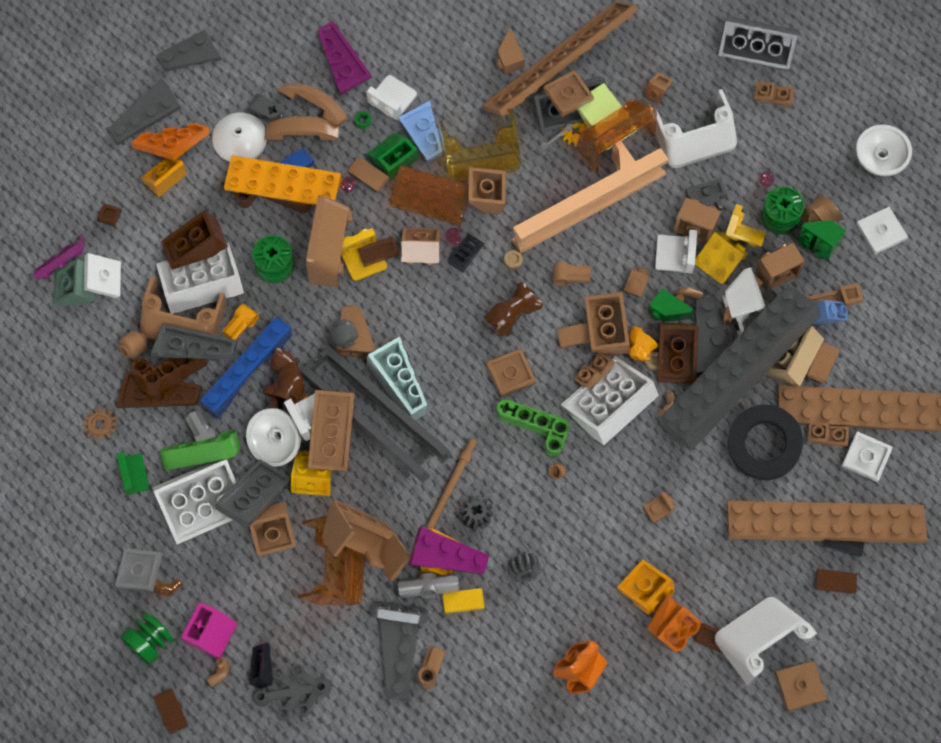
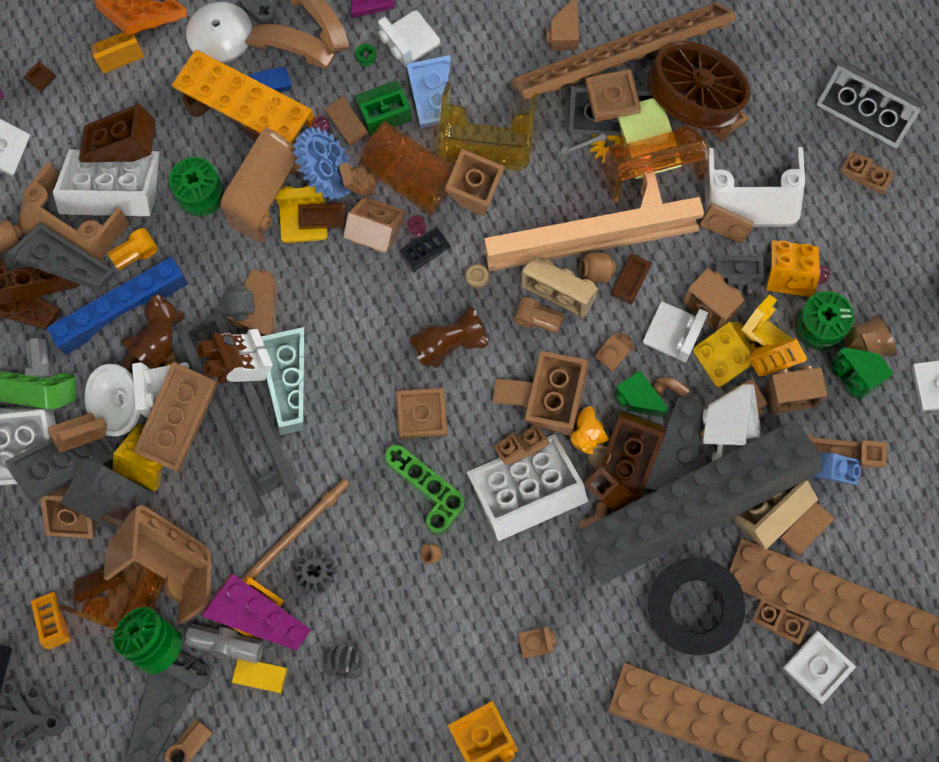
camera: 25 degrees right, 5 degrees up
(256, 469) = (77, 432): none -> medium nougat panel
(294, 626) = (57, 634): none -> light orange slope
(298, 502) = (103, 492): none -> dark grey slope
(315, 574) = (95, 584): none -> reddish brown tile
(361, 372) = (235, 357): none -> hips
(368, 210) = (320, 162): none -> medium blue gear
(373, 599) = (147, 640): none -> green wheel
(396, 215) = (358, 180): none -> medium nougat slope
(579, 247) = (559, 286): none -> tan slope
(601, 224) = (597, 267): none -> medium nougat head
(623, 58) = (722, 94): none -> reddish brown wheel
(629, 225) = (631, 279): none -> reddish brown tile
(670, 379) = (607, 488): none -> reddish brown slope
(685, 162) = (726, 223): none -> medium nougat plate
(746, 180) = (793, 268): none -> light orange bracket
(748, 250) = (765, 365): none -> light orange slope

